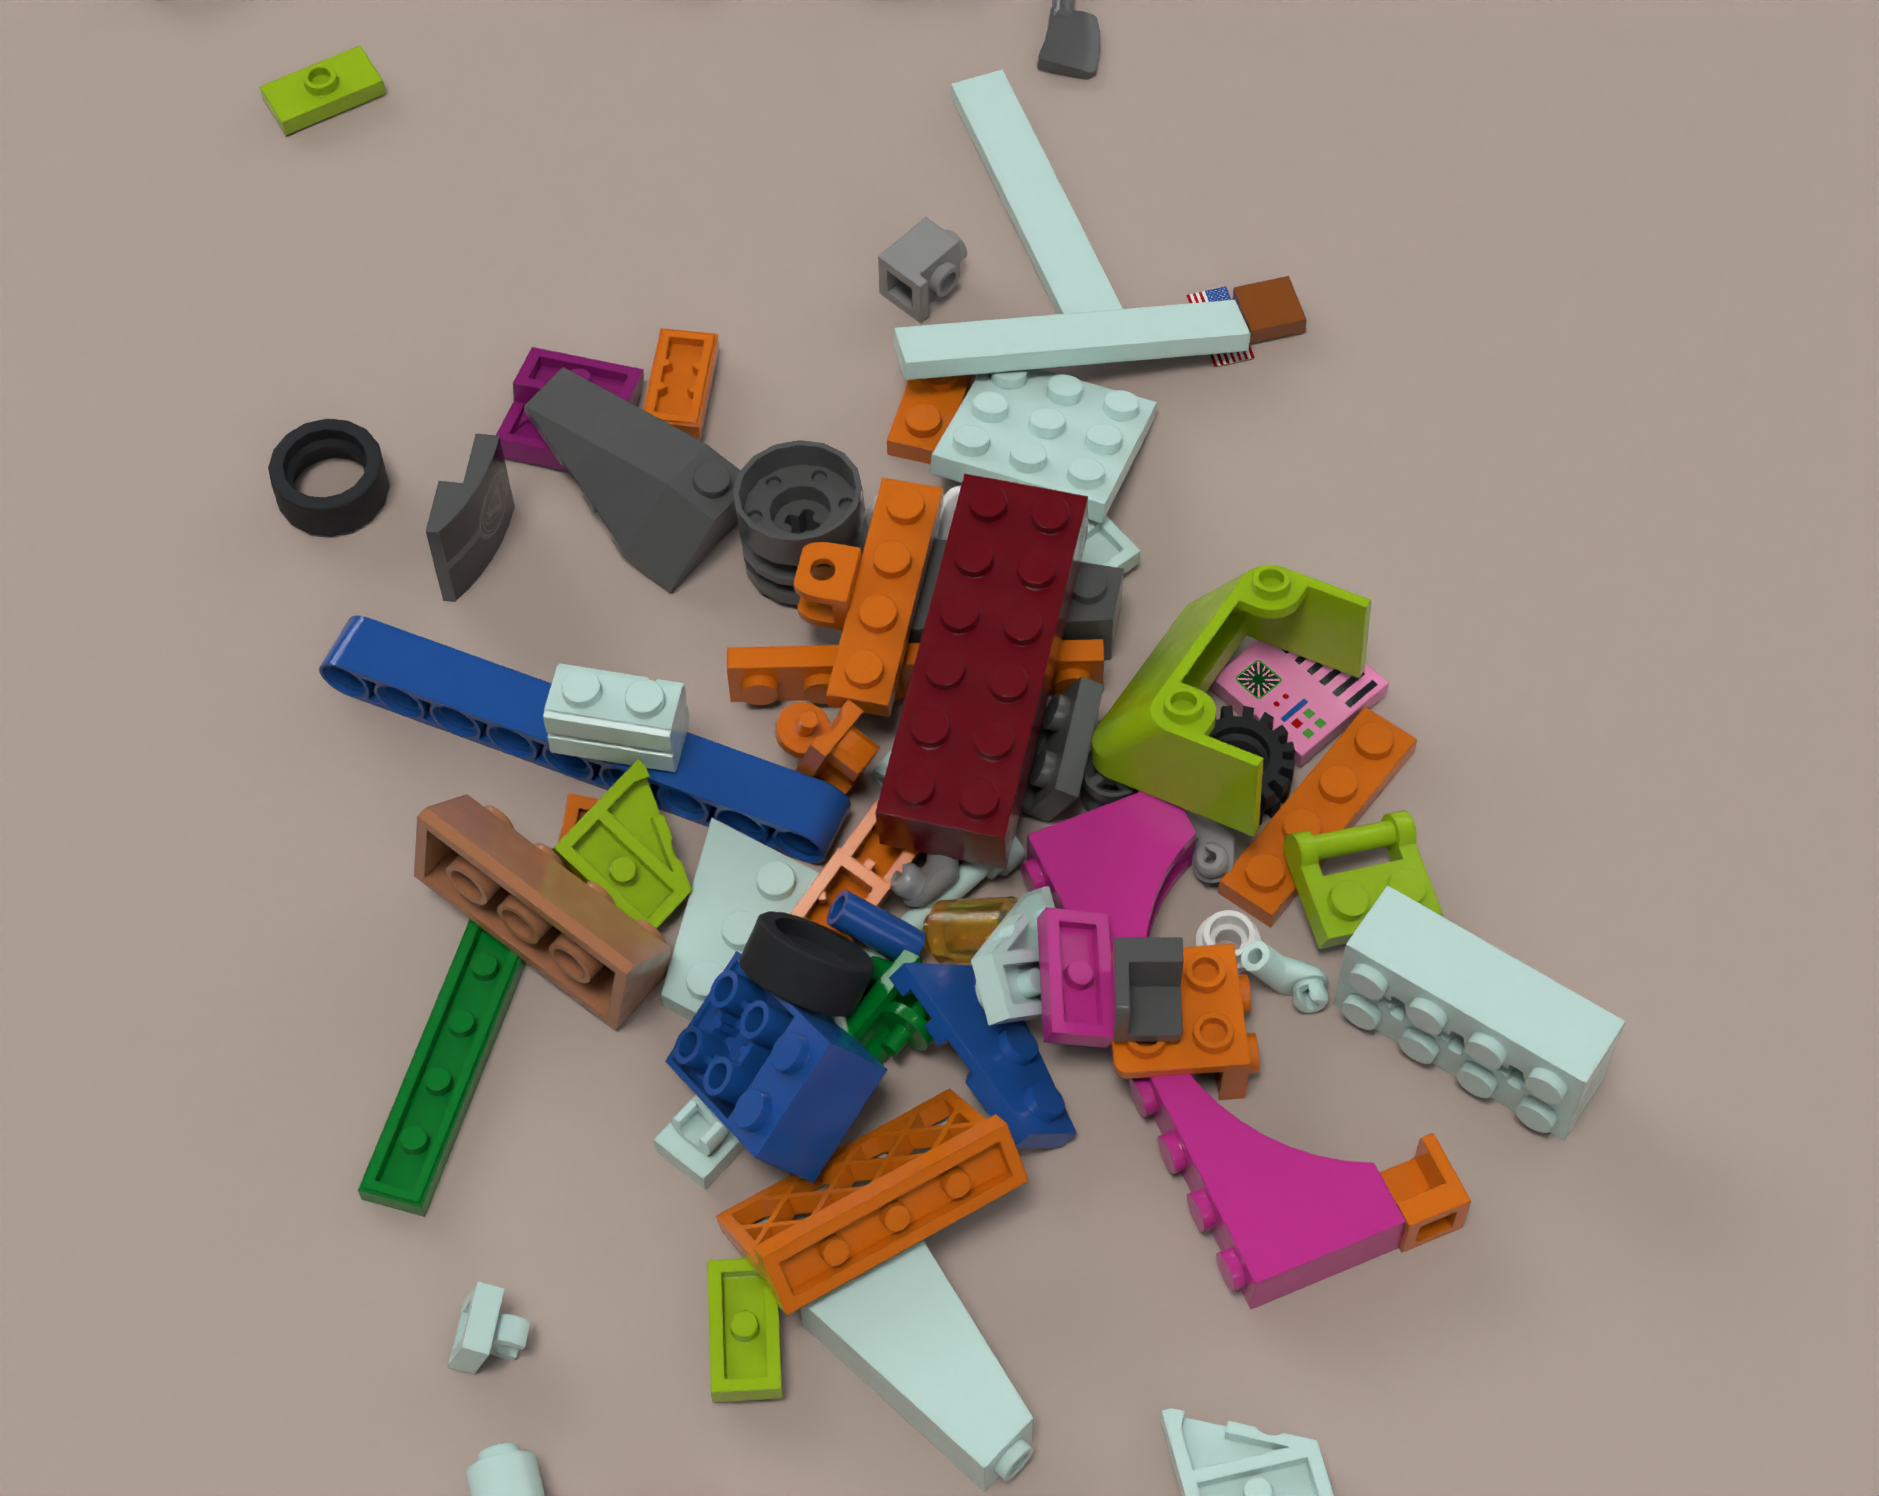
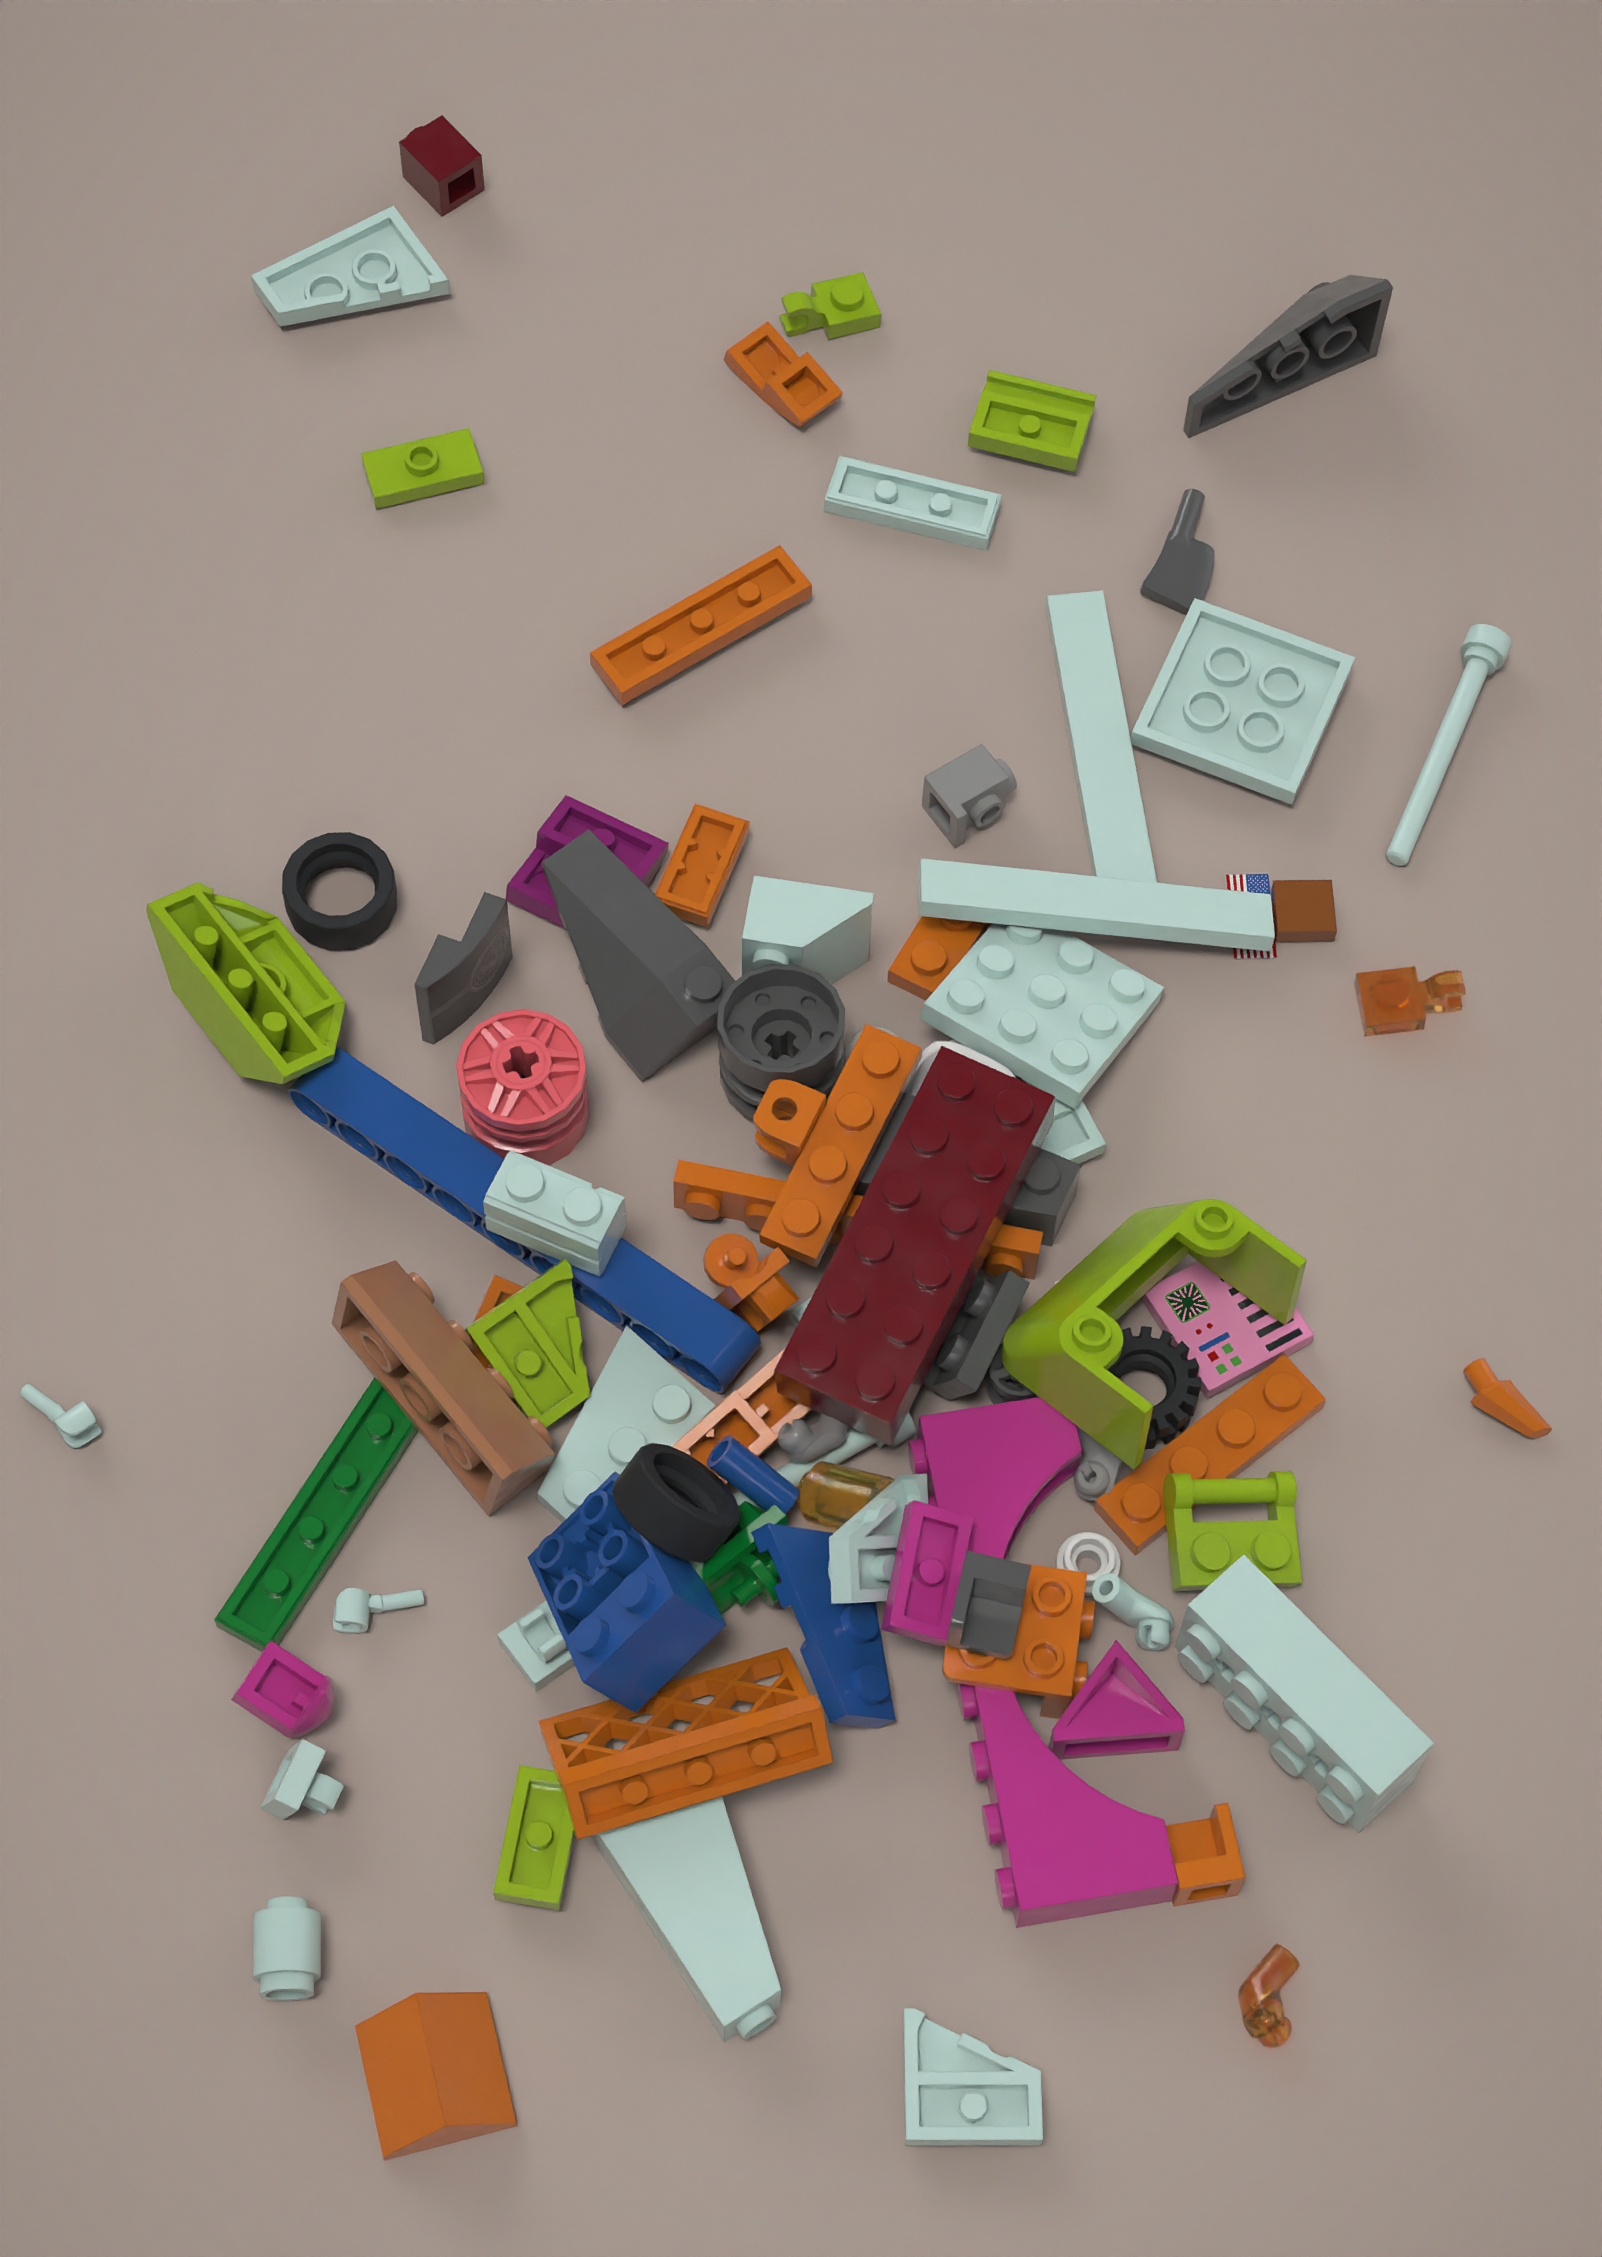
camera: 10 degrees right, 5 degrees up
(169, 1034) = (75, 1426): none -> light aqua hand
(253, 576) = (247, 983): none -> lime wedge
(449, 1245) = (286, 1693): none -> dark pink plate
(501, 1143) = (354, 1605): none -> light aqua hand
(555, 605) = (530, 1115): none -> coral wheel
(626, 173) = (700, 624): none -> orange plate
(801, 31) = (912, 503): none -> light aqua tile
(801, 403) = (806, 927): none -> light aqua slope
(1160, 138) = (1242, 701): none -> light aqua plate
(1300, 1073) = (1117, 1714): none -> dark pink slope
(1373, 55) = (1483, 653): none -> light aqua piece
(1384, 372) = (1397, 1002): none -> clear orange plate
(1516, 1320) = (1261, 1997): none -> clear orange arm
(1587, 705) = (1504, 1401): none -> orange bar

